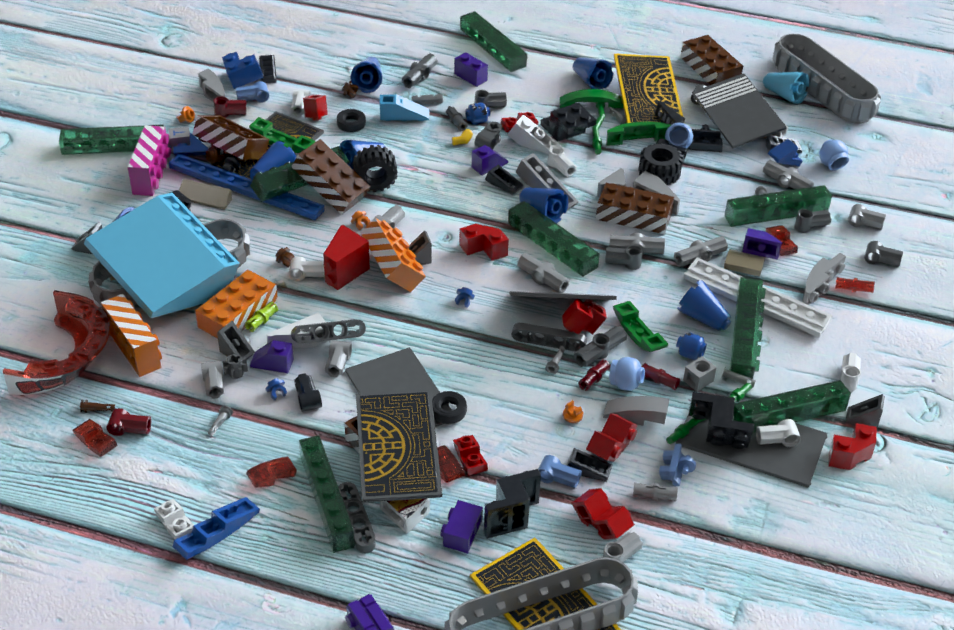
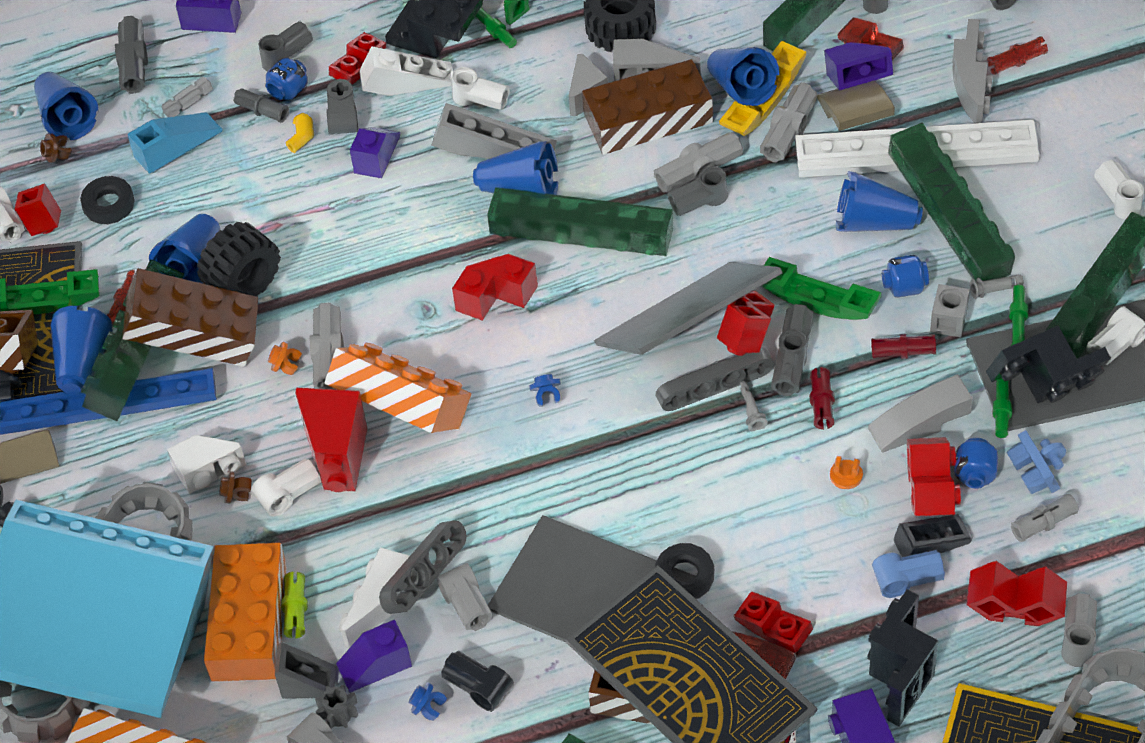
camera: 30 degrees left, 10 degrees up
(283, 236) = (205, 460): none -> white slope
(422, 248) = (423, 348): dark grey slope -> none
(499, 177) = (410, 170): black slope -> none
(543, 273) = (616, 284): light grey piece -> none
(626, 373) = (867, 370): light blue piece -> none
(642, 445) = (976, 463): none -> blue head
(695, 217) = (745, 73): none -> blue cone
(720, 227) = (746, 118): none -> yellow slope

